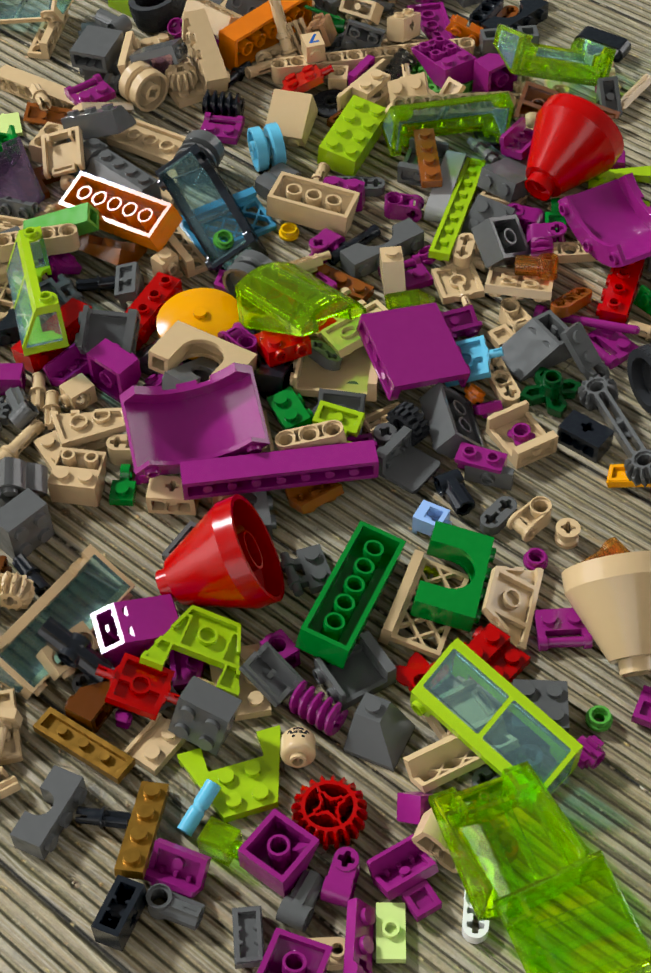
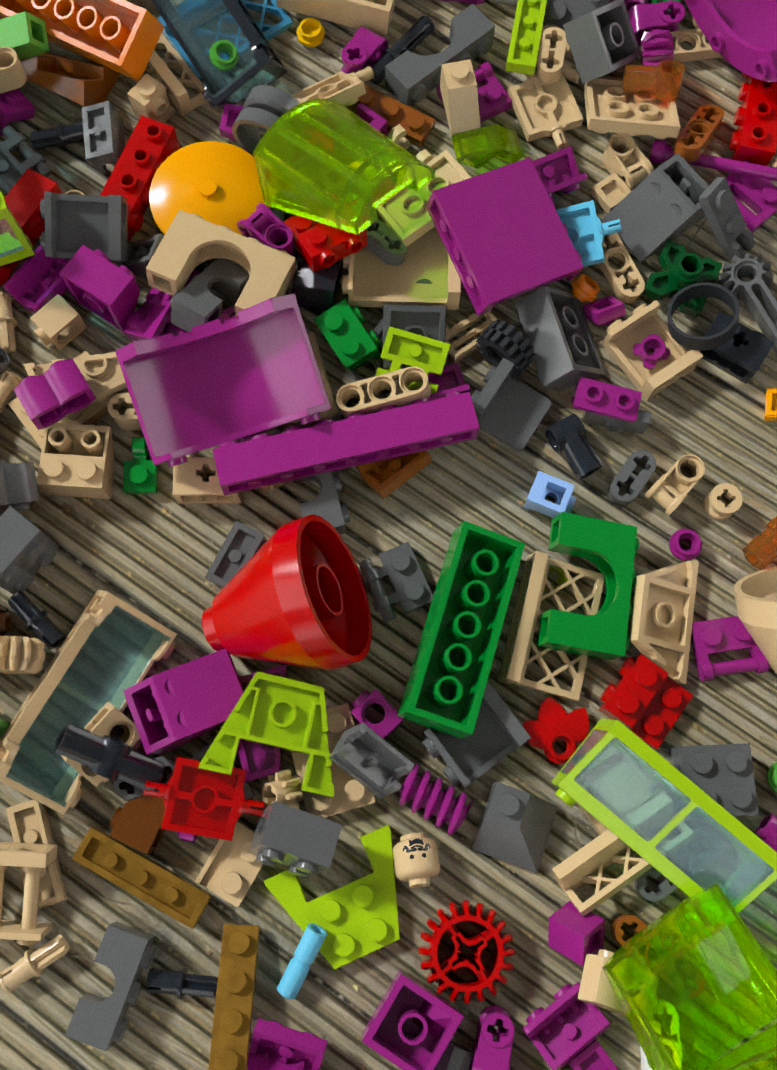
camera: 10 degrees left, 25 degrees up
(51, 404) = (25, 346): tan axle -> none
(70, 426) = (54, 394): none -> magenta brick
(220, 841) = (336, 1008): clear neon green brick -> none
(383, 432) = (475, 373): flat silver wheel -> none
(423, 253) = (498, 61): magenta plate -> none
(564, 423) = (703, 289): none -> black tyre

